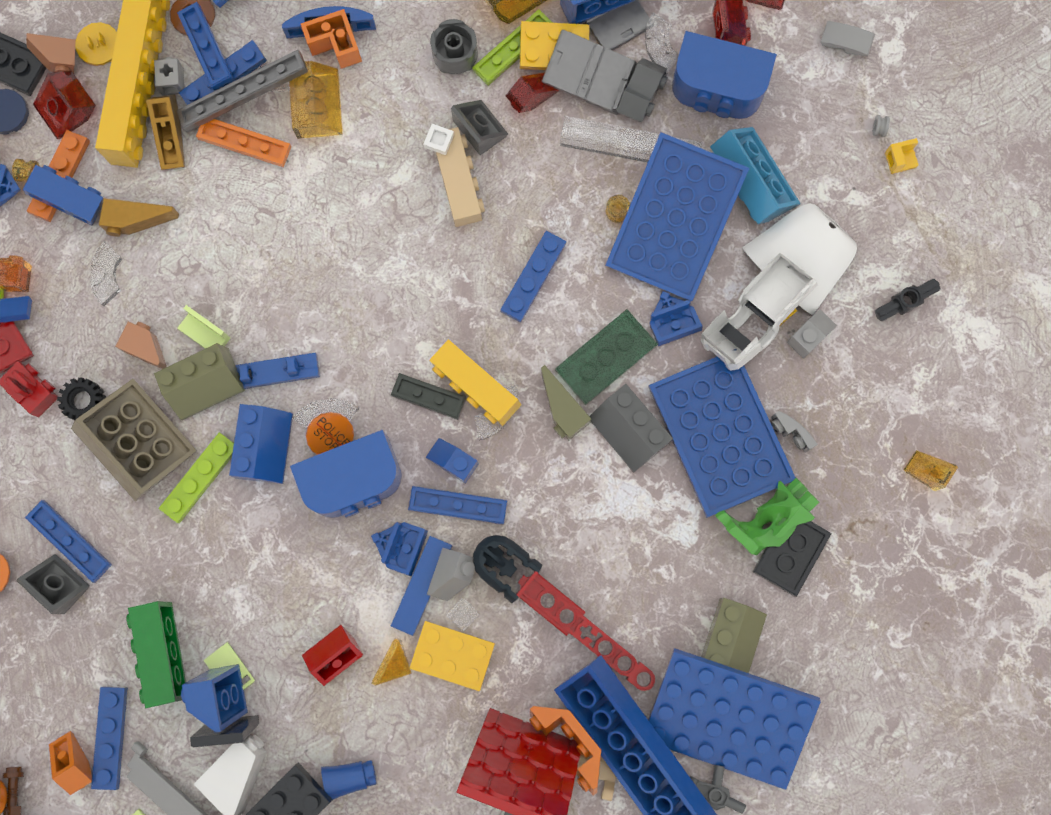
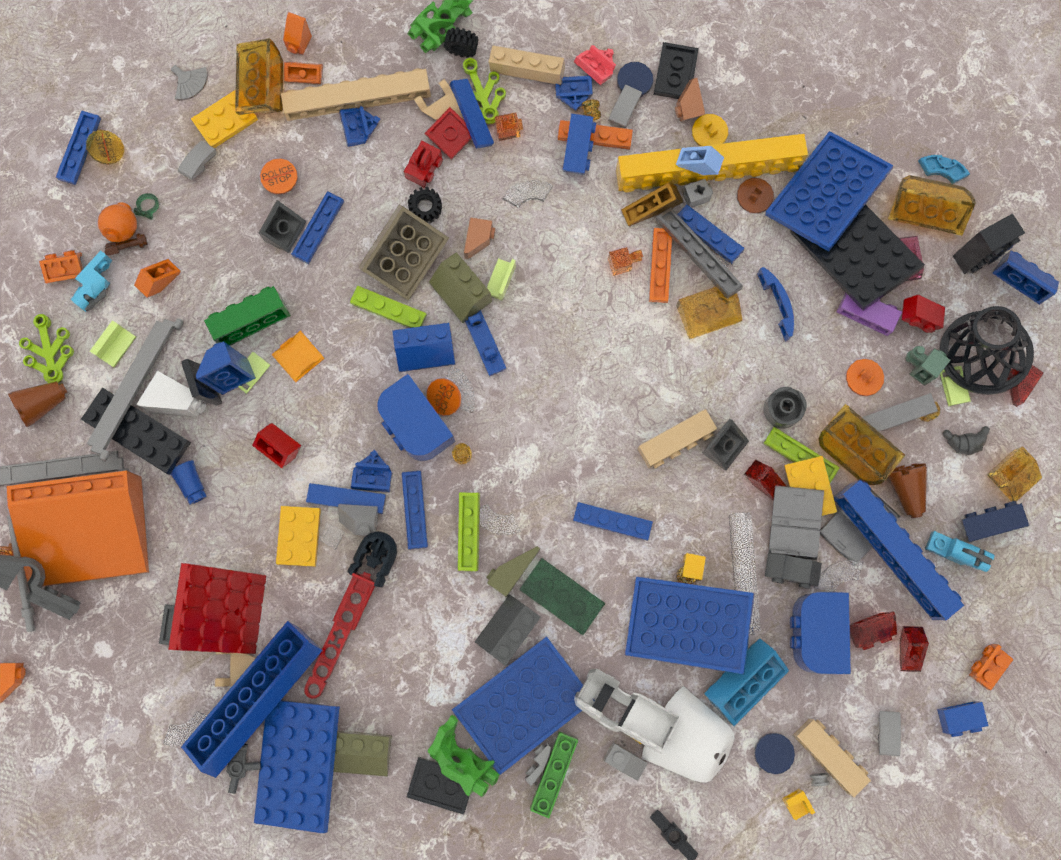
camera: 70 degrees right, 0 degrees up
(34, 130) = (624, 106): none -> light grey slope
(63, 103) = (653, 121): clear red slope -> none
(109, 738) = (181, 300): blue plate -> none
(130, 52) = (701, 160): none -> light blue slope
(131, 217) = (575, 198): pearl gold slope -> none
(205, 46) = (728, 213): blue tile -> none
(224, 182) = (621, 261): none -> clear orange brick
(226, 604) = (298, 356): none -> light orange piece
(332, 33) = (768, 310): orange brick -> none
(393, 665) = (281, 493): clear yellow slope -> none
(402, 427) = (463, 450): none -> clear yellow wheel
(428, 396) = (494, 464): pearl dark grey tile -> none
(438, 139) = (701, 416): white tile -> none
(452, 460) = (447, 496): blue slope -> none
(475, 383) = (512, 497): yellow brick -> none
(501, 445) = (468, 531): none -> lime plate
(548, 719) = (263, 621): orange slope -> none
(610, 196) = (693, 566): none -> yellow panel
(673, 319) = (606, 643): blue slope -> none
(813, 417) = (554, 774): none -> bright green brick
(840, 167) = (774, 753): none -> dark blue tile
(859, 106) = (832, 757): none -> tan brick

